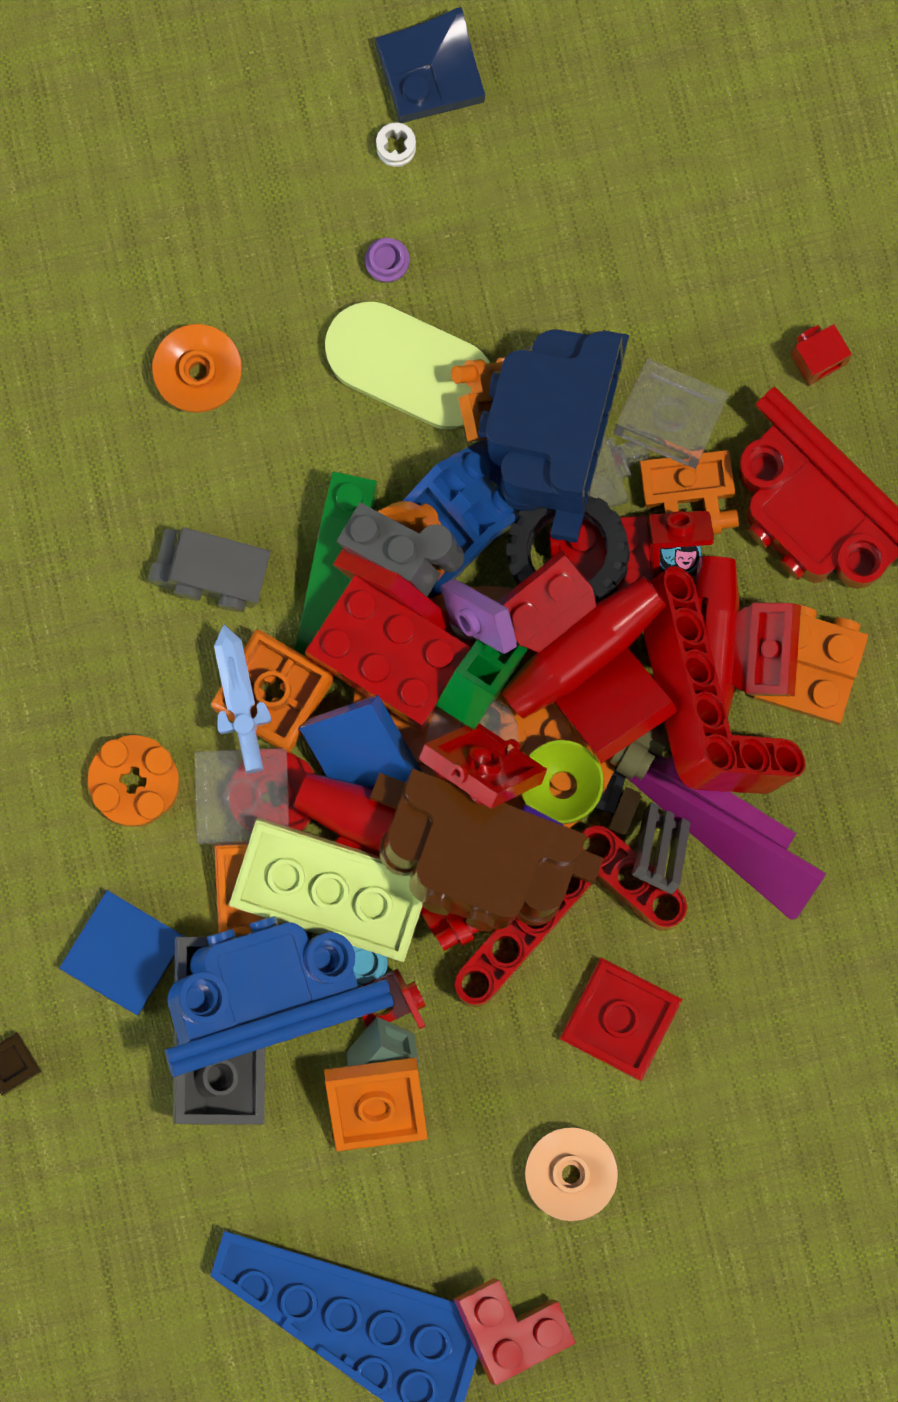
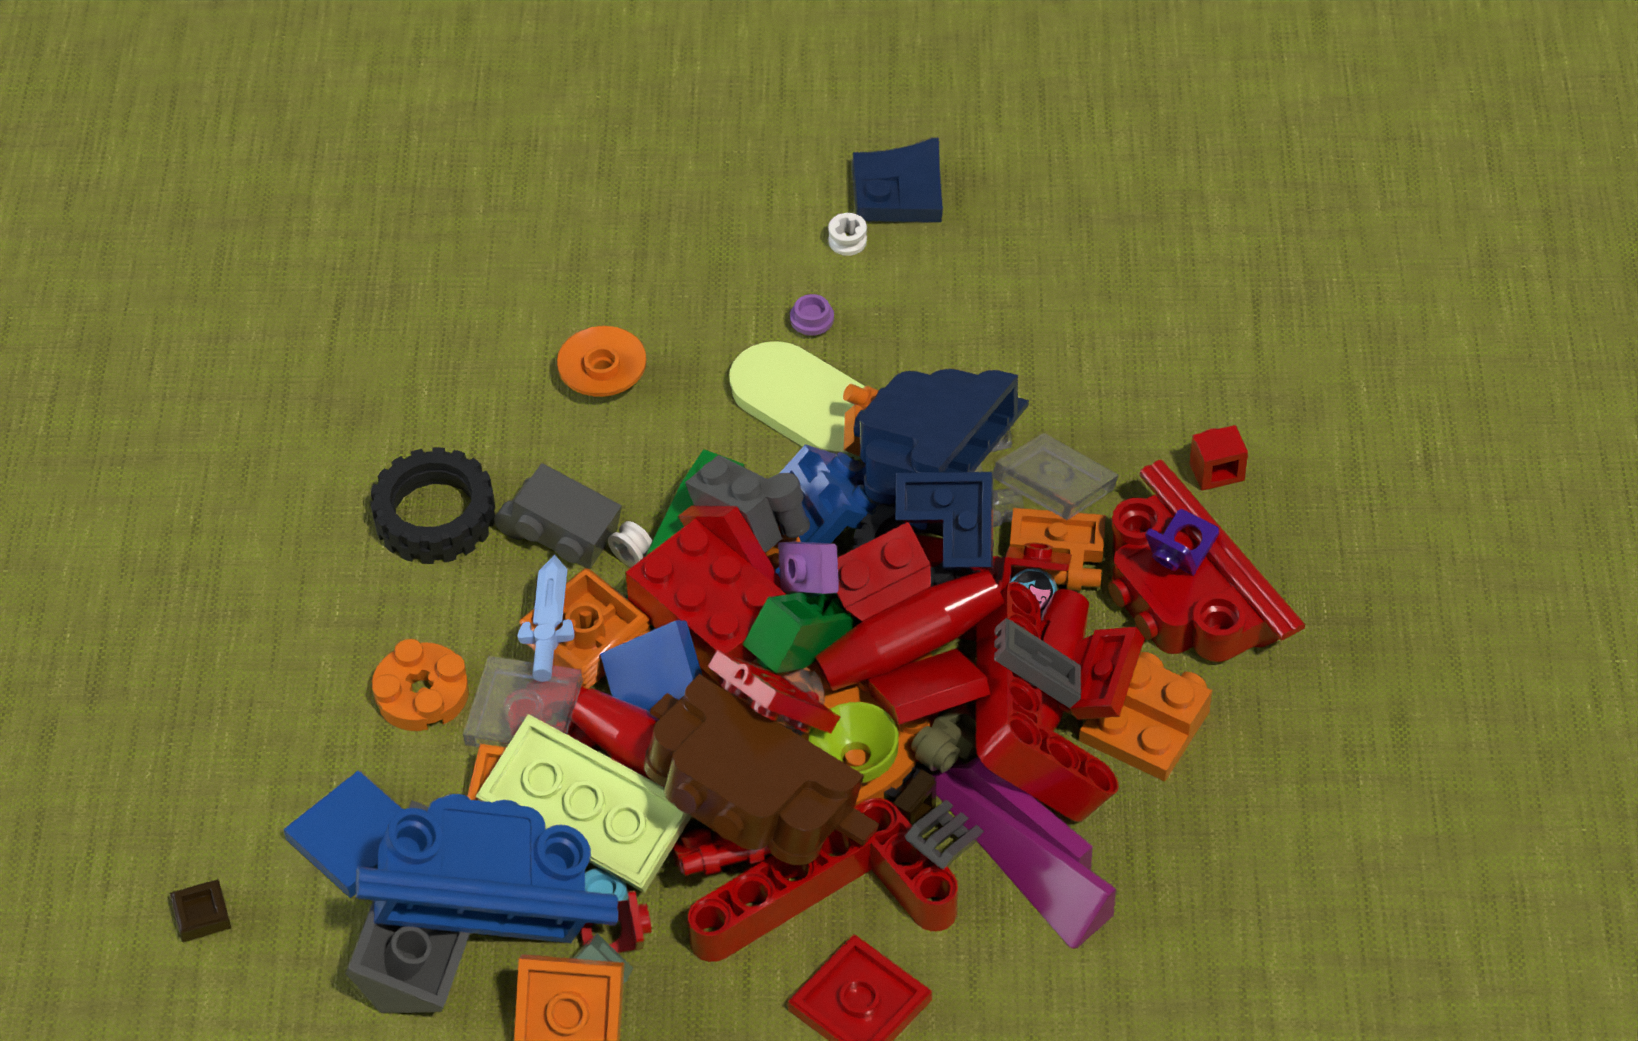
camera: 15 degrees right, 30 degrees down
(75, 529) = (442, 540): none -> black tyre
(286, 581) = (630, 543): none -> white bush
(602, 521) = (958, 501): none -> dark blue plate
(714, 674) = (1038, 663): none -> dark grey tile
(808, 502) = (1175, 555): none -> dark purple bracket

